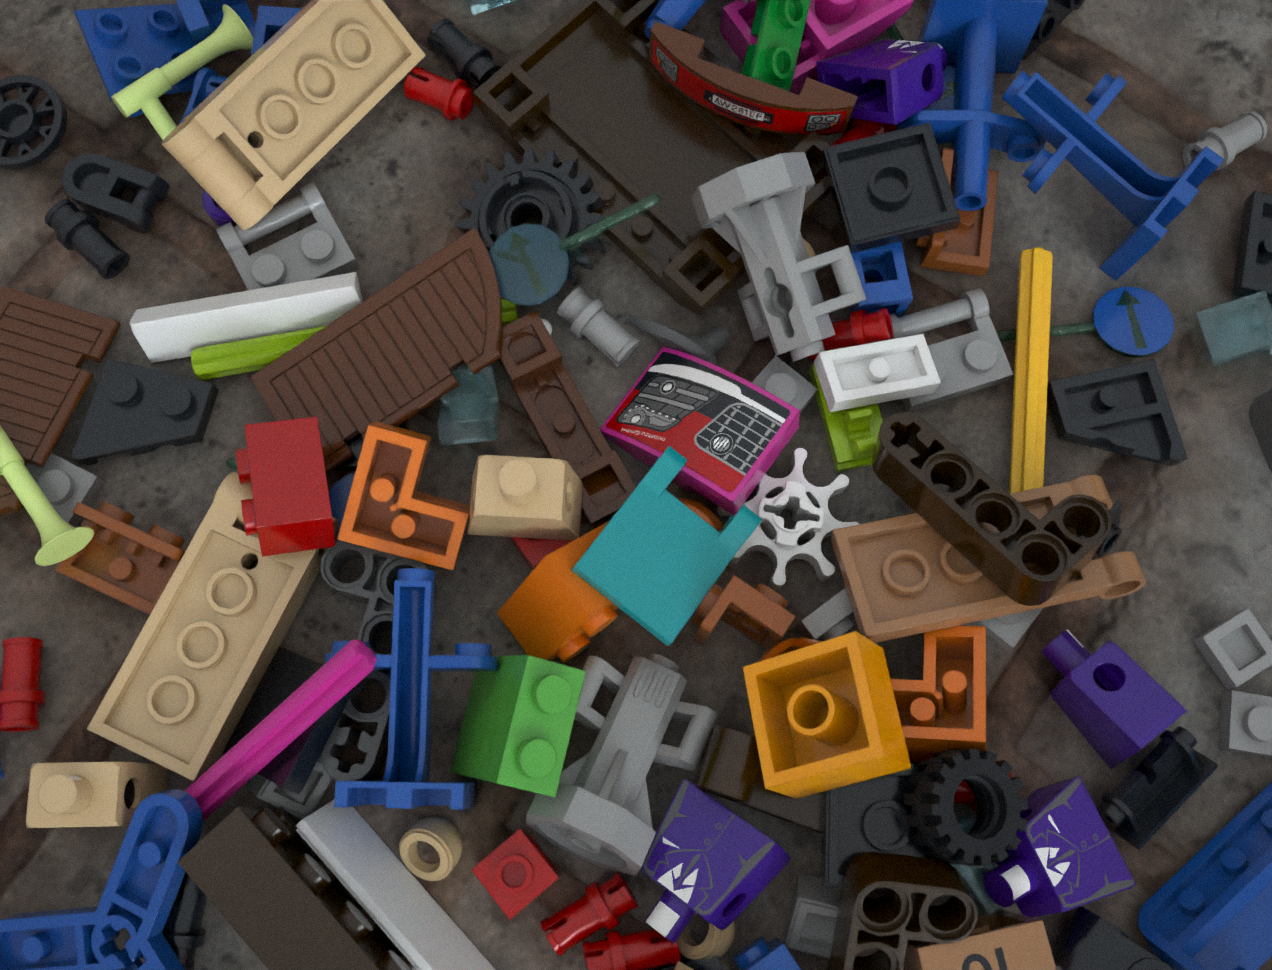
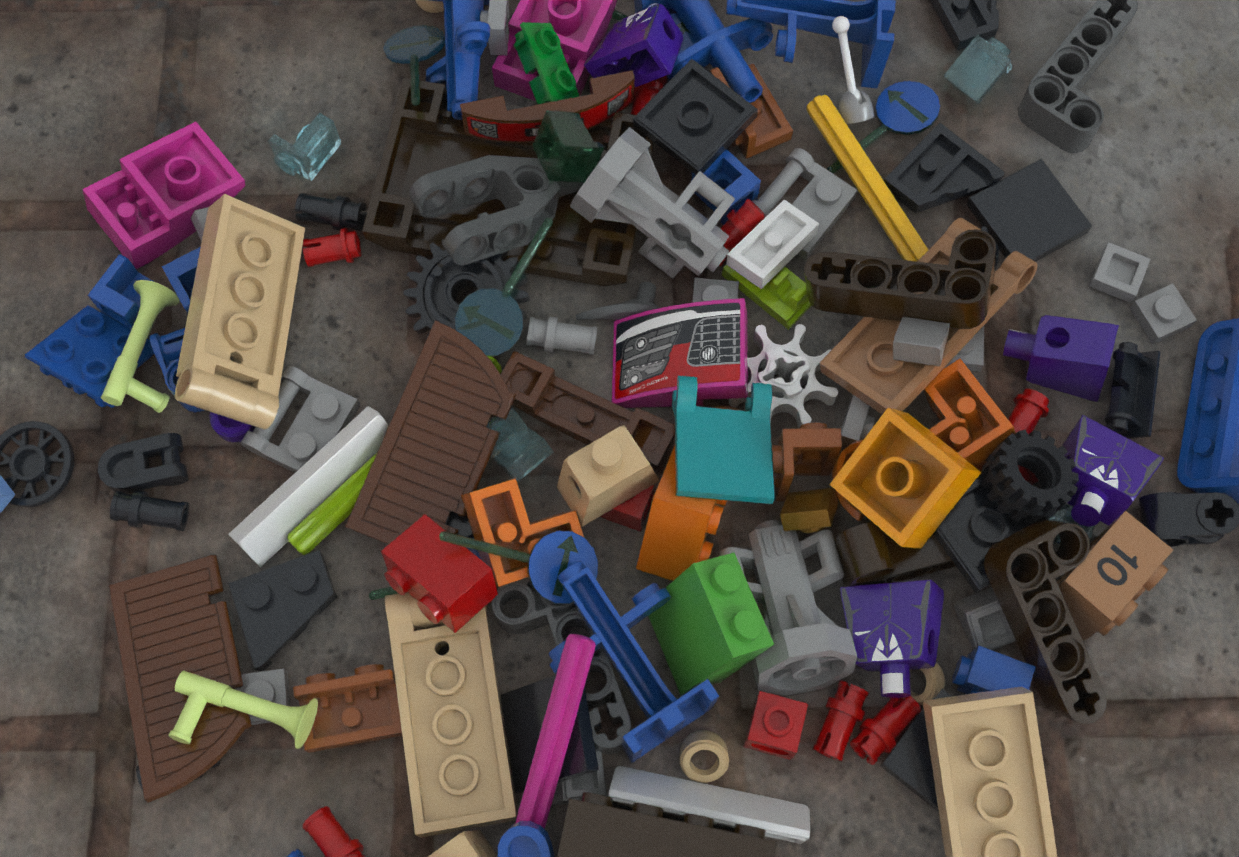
camera: 30 degrees left, 5 degrees down
(401, 546) = (545, 562): none -> blue piece
(661, 141) = (513, 180): none -> dark grey piece
(709, 676) = (809, 510): none -> pearl gold plate
(729, 131) = (566, 147): none -> clear green brick
(953, 580) = (920, 341): none -> light grey slope
(1020, 732) = (1028, 410): none -> red pin
(1077, 282) = (854, 104): none -> hinge
(1183, 520) = (1029, 213): none -> black tile

